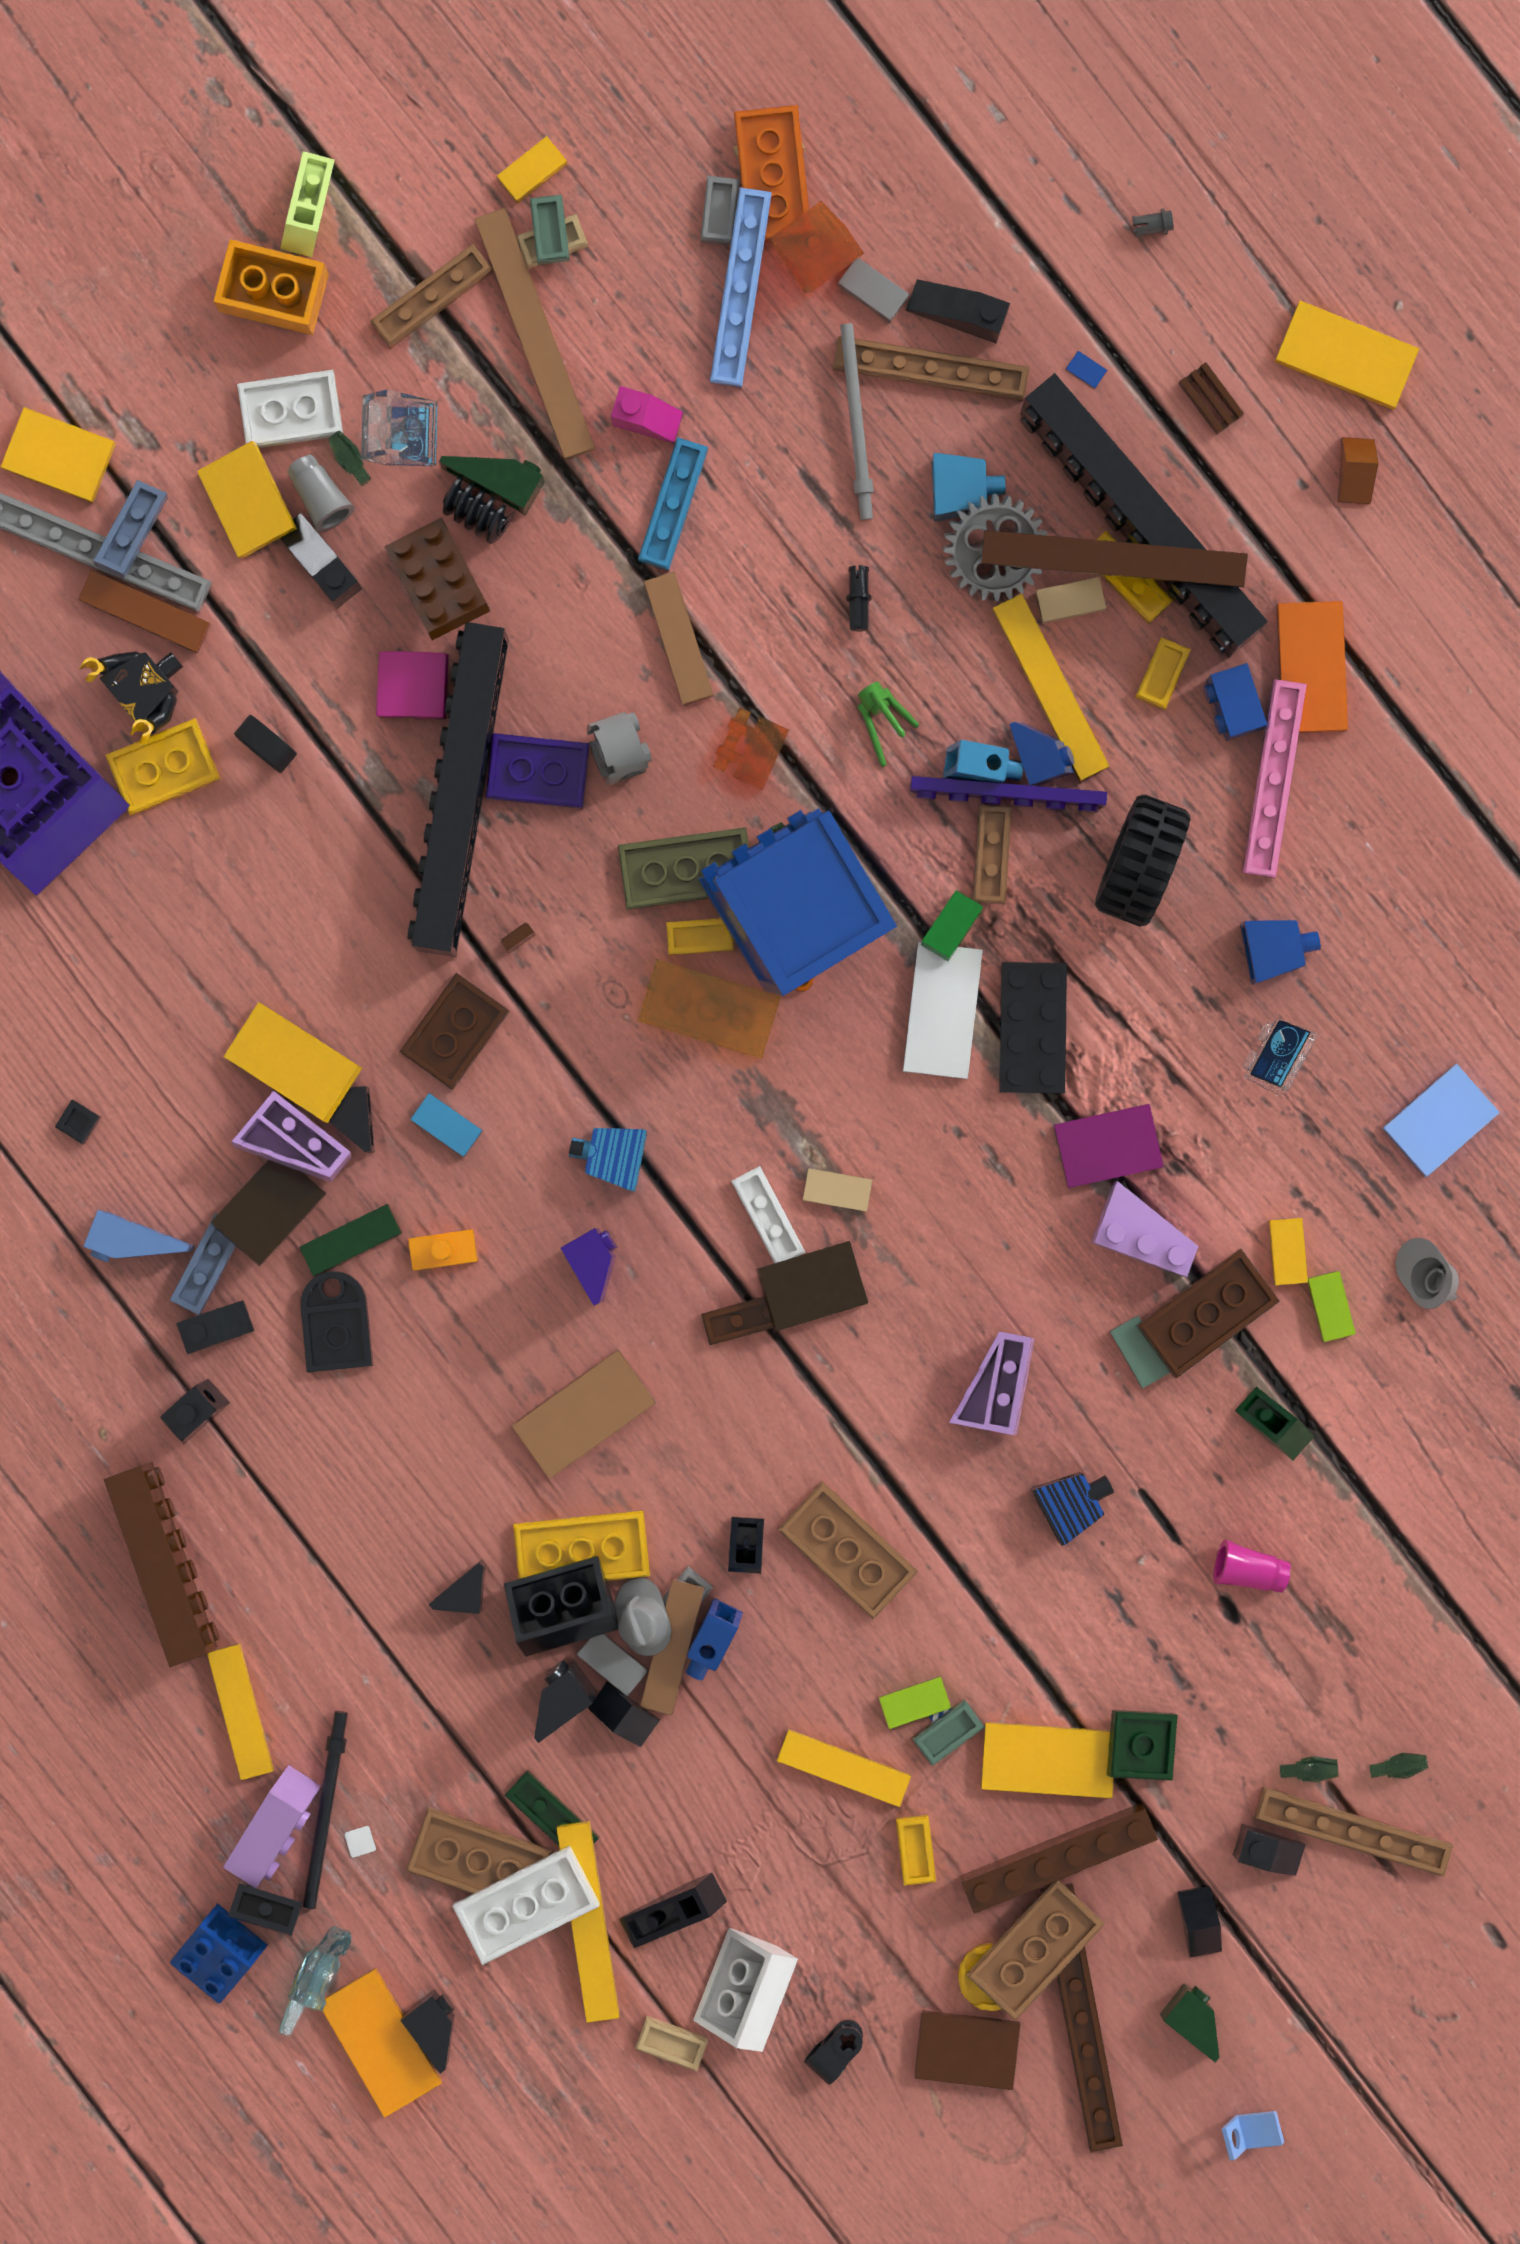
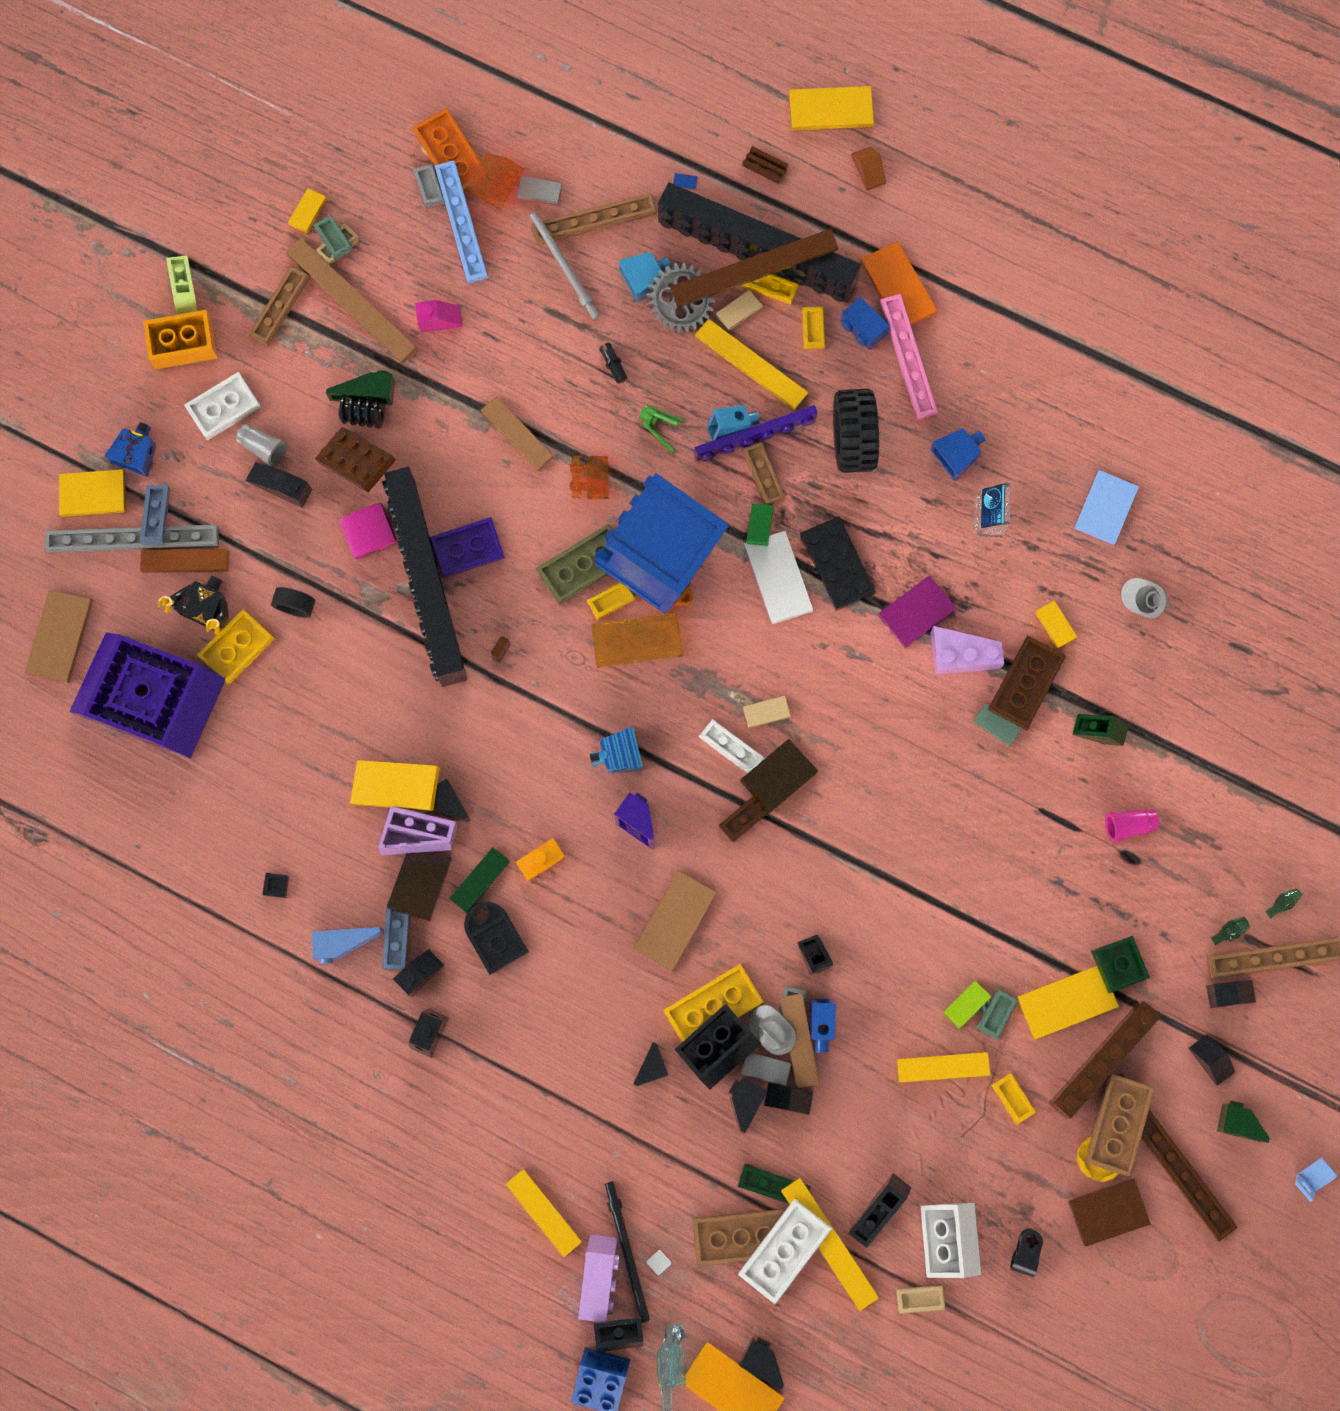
camera: 20 degrees left, 10 degrees down
(140, 419) = (133, 450): none -> blue torso
(162, 1564) = (449, 1137): reddish brown brick -> none
(246, 499) = (219, 467): yellow tile -> none
(348, 457) = (270, 416): clear green piece -> none
(399, 429) = (293, 387): clear slope -> none
(446, 1125) = (507, 782): dark azure tile -> none
(454, 1031) = (487, 724): reddish brown tile -> none
(618, 747) = (510, 509): light grey brick -> none
(673, 504) = (477, 359): dark azure tile -> none
(847, 1550) = (879, 929): medium nougat tile -> none
(959, 309) = (597, 177): black slope -> none
(999, 1386) = (923, 785): lavender wedge -> none
(1041, 754) = (765, 402): blue slope -> none
(1071, 1504) = (1002, 835): torso -> none
(1155, 223) = (684, 85): dark grey pin -> none
(1331, 1306) = (1098, 645): lime tile -> none

